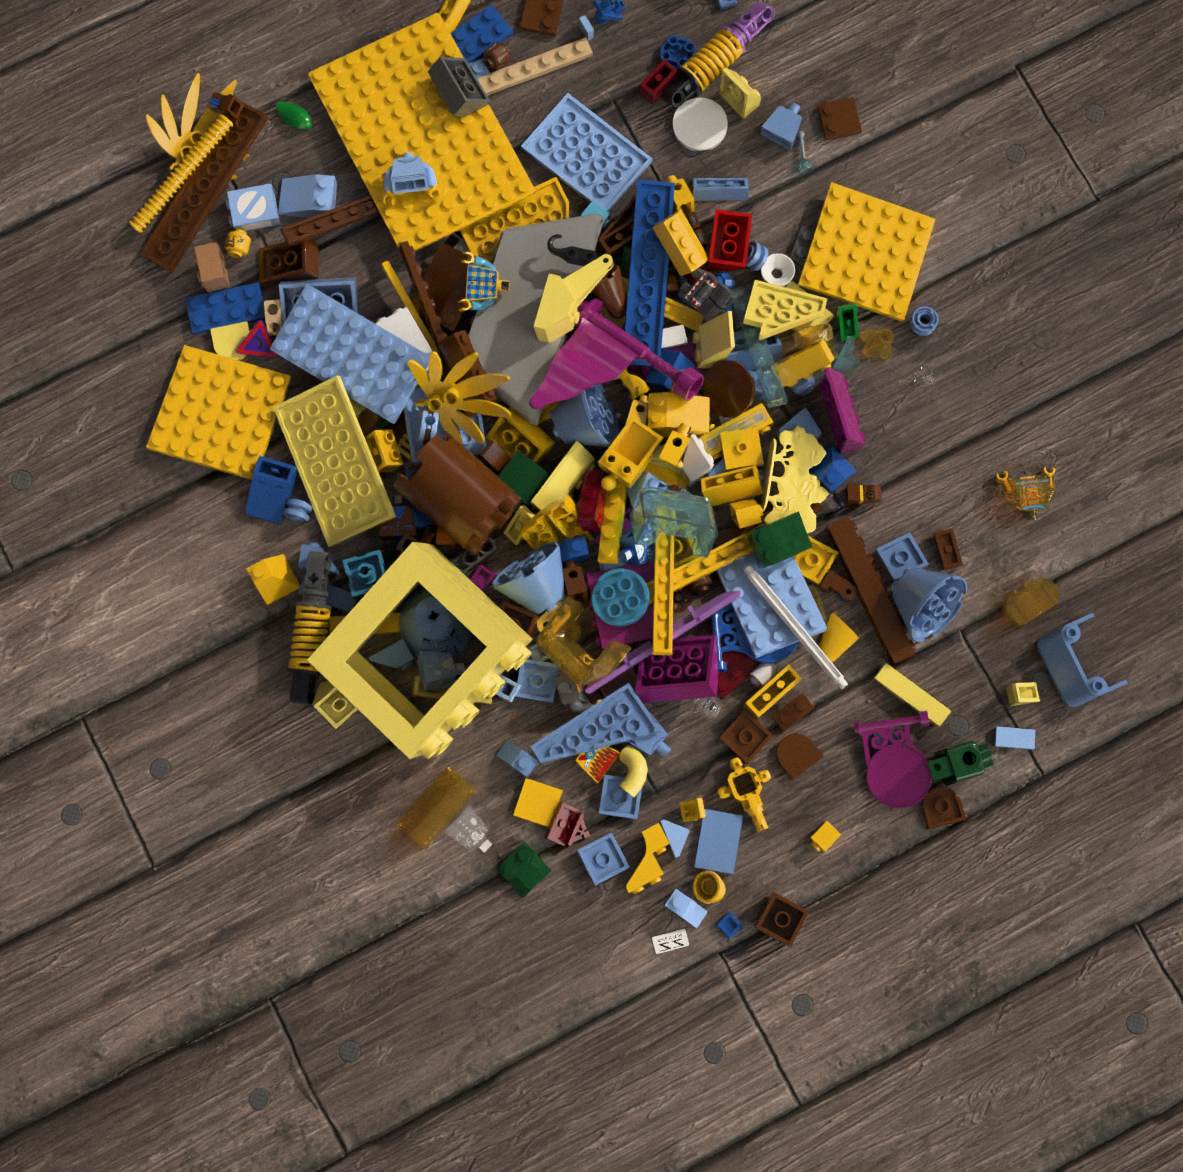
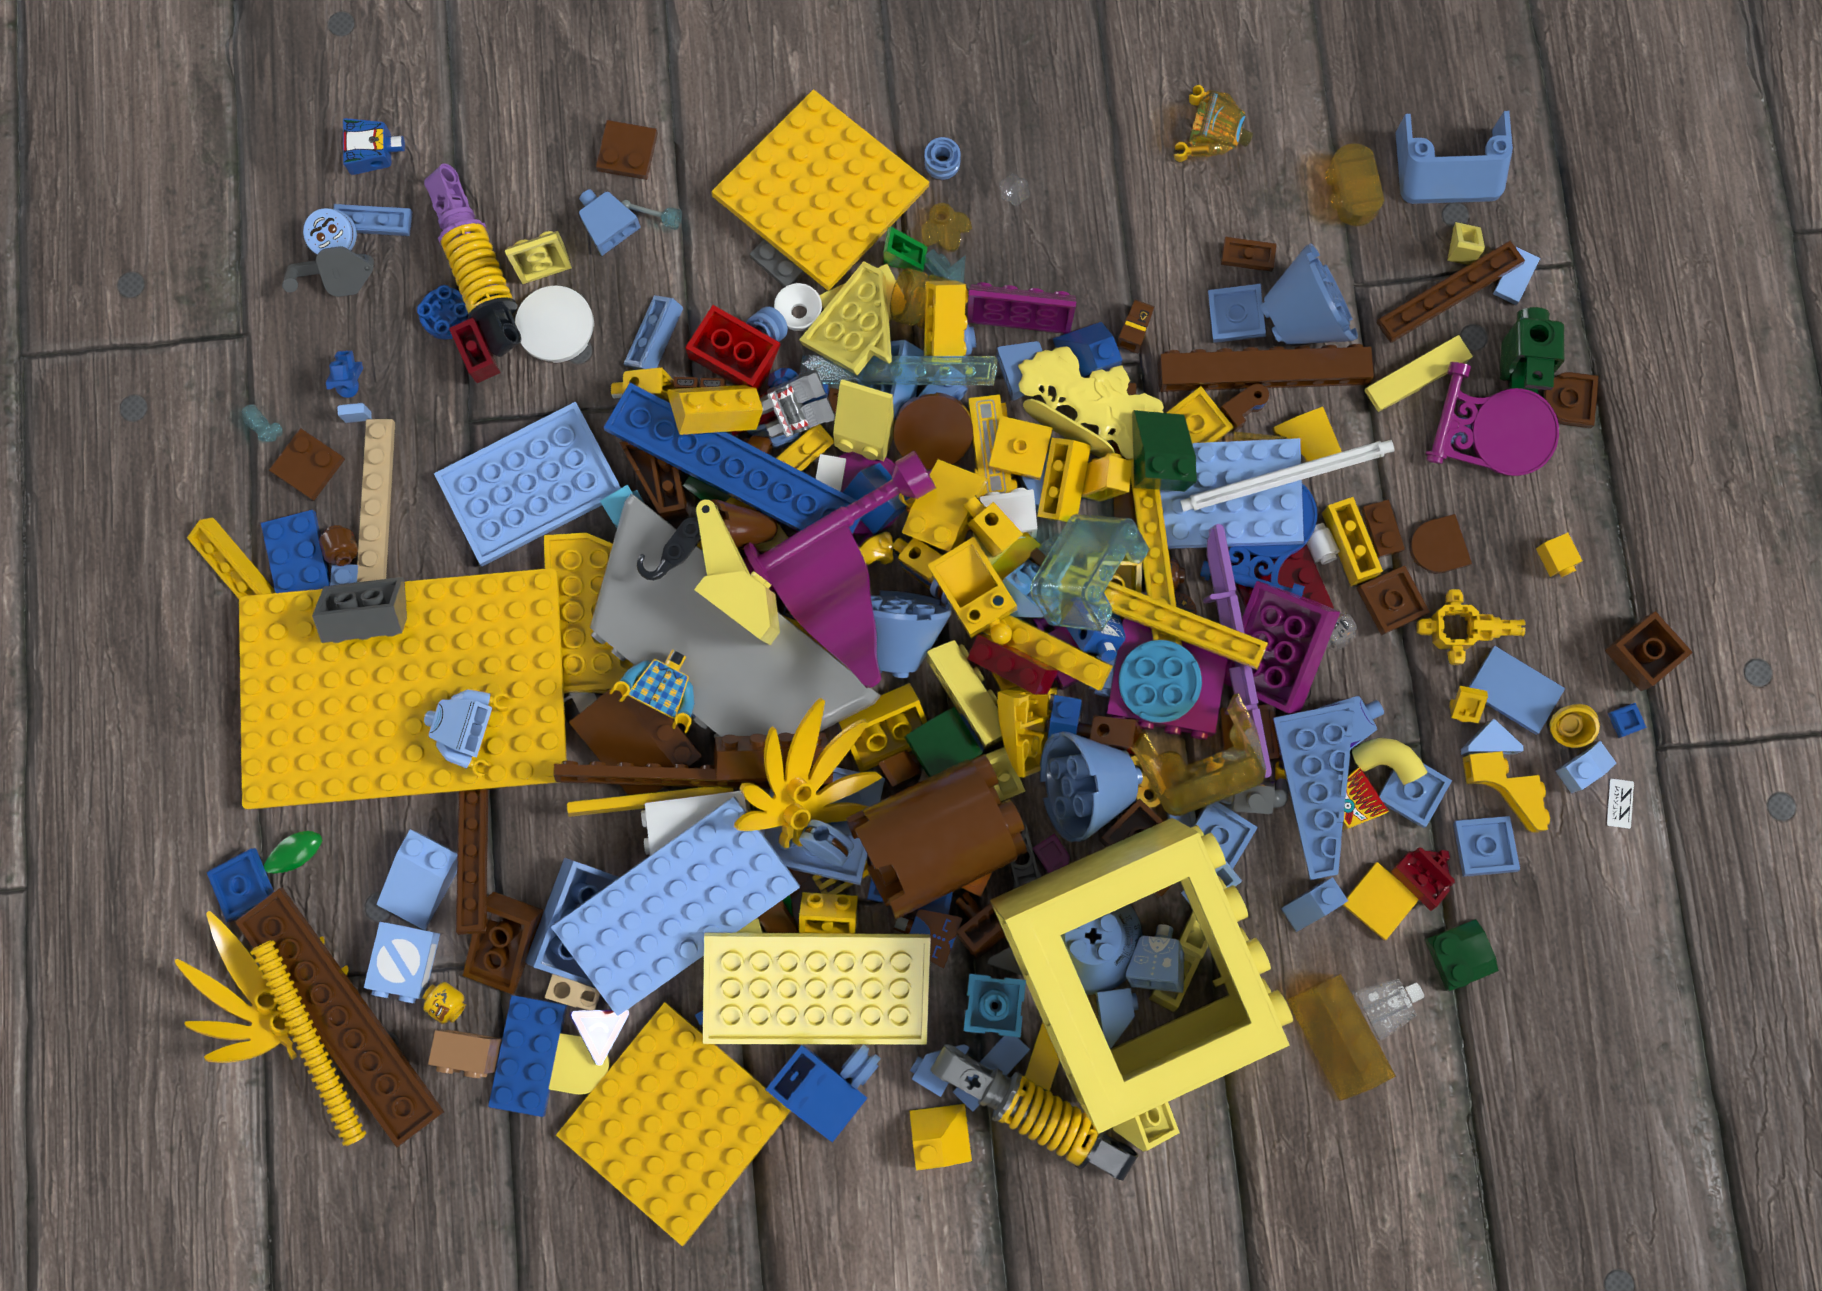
camera: 65 degrees left, 0 degrees up
(221, 104) = (237, 941): reddish brown leg -> none
(261, 92) = (240, 884): none -> blue tile
(982, 696) = (1450, 291): none -> reddish brown tile

